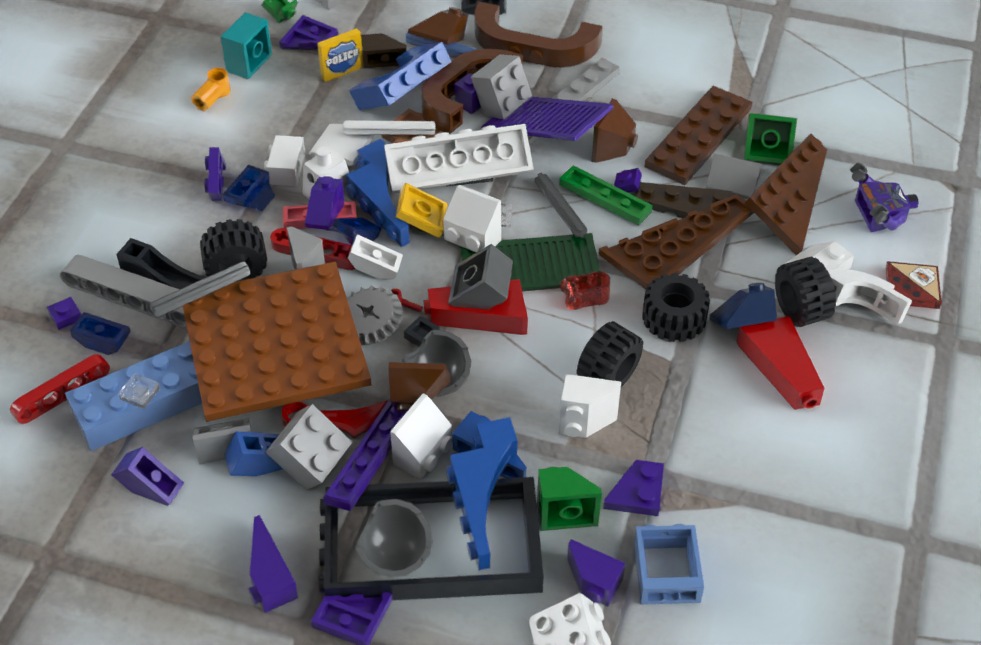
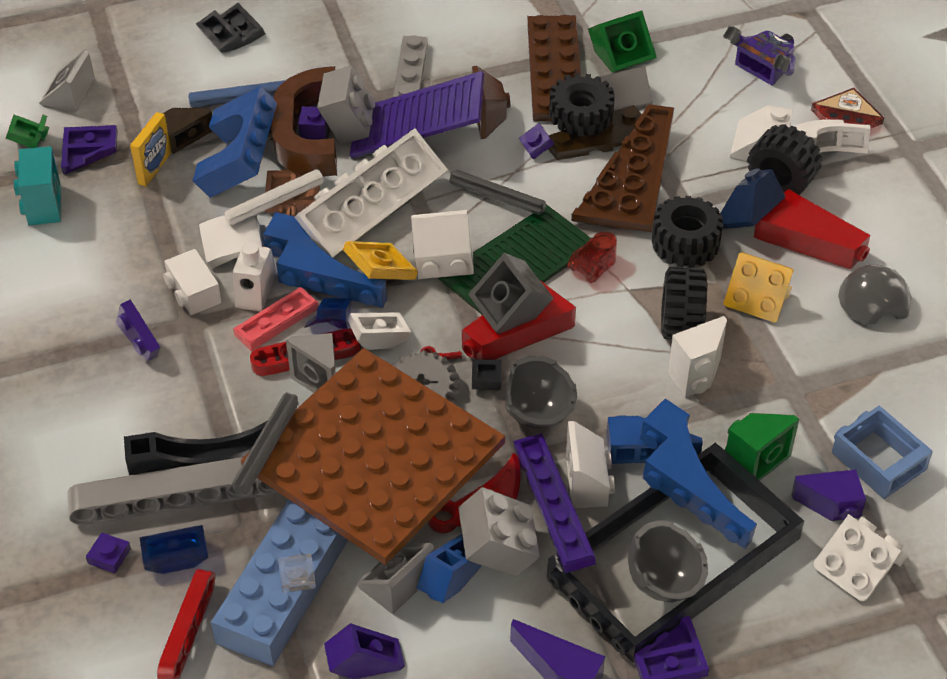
camera: 35 degrees left, 0 degrees up
(214, 88) = (39, 249): light orange piece -> none
(231, 244) = (243, 393): black tyre -> none
(250, 189) = (183, 327): clear blue slope -> none
(324, 203) = (284, 301): dark purple slope -> none
(412, 380) = (548, 419): reddish brown slope -> none
(443, 27) = (224, 74): reddish brown slope -> none
(536, 48) = (353, 50): reddish brown arch -> none
(605, 195) = (528, 163): green plate -> none
(638, 489) = (798, 398): dark purple wing -> none
(683, 157) = (581, 91): none -> black tyre
(691, 380) = (758, 287): none -> yellow bracket
(790, 192) = (684, 83): reddish brown wing -> none
(791, 438) = (873, 293): none -> dark grey cylinder

